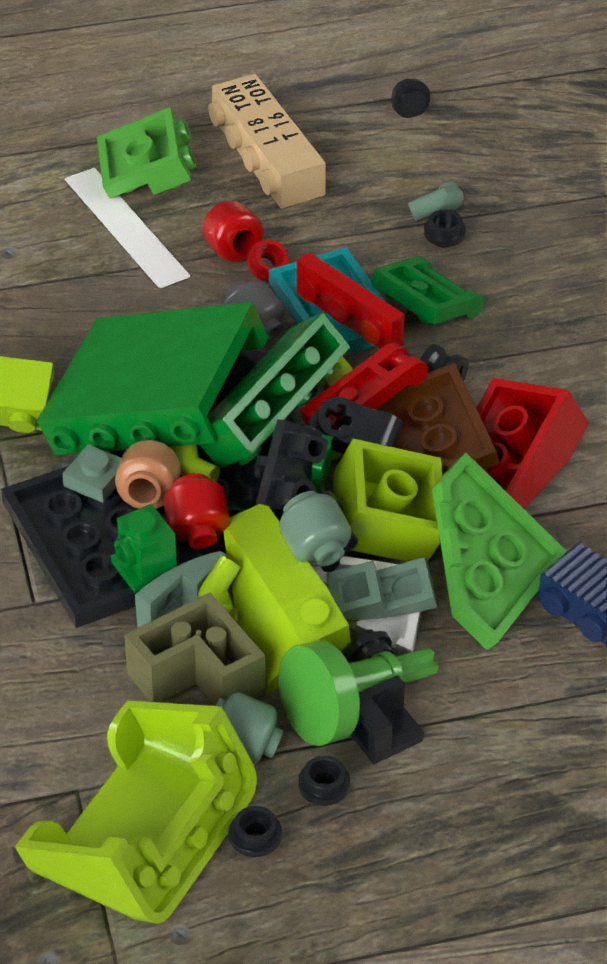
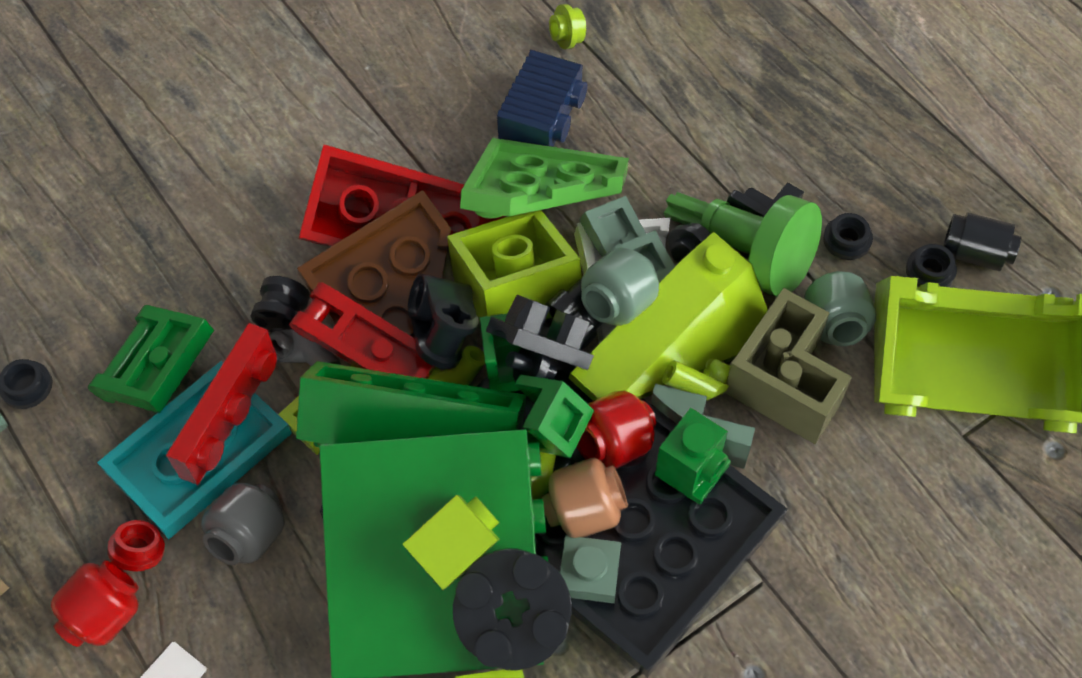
camera: 110 degrees left, 15 degrees up
(77, 394) = (495, 639): none -> black plate
(136, 354) = (453, 539): none -> lime brick
(218, 452) = (556, 416): none -> green panel
(260, 877) = (982, 241): none -> black brick

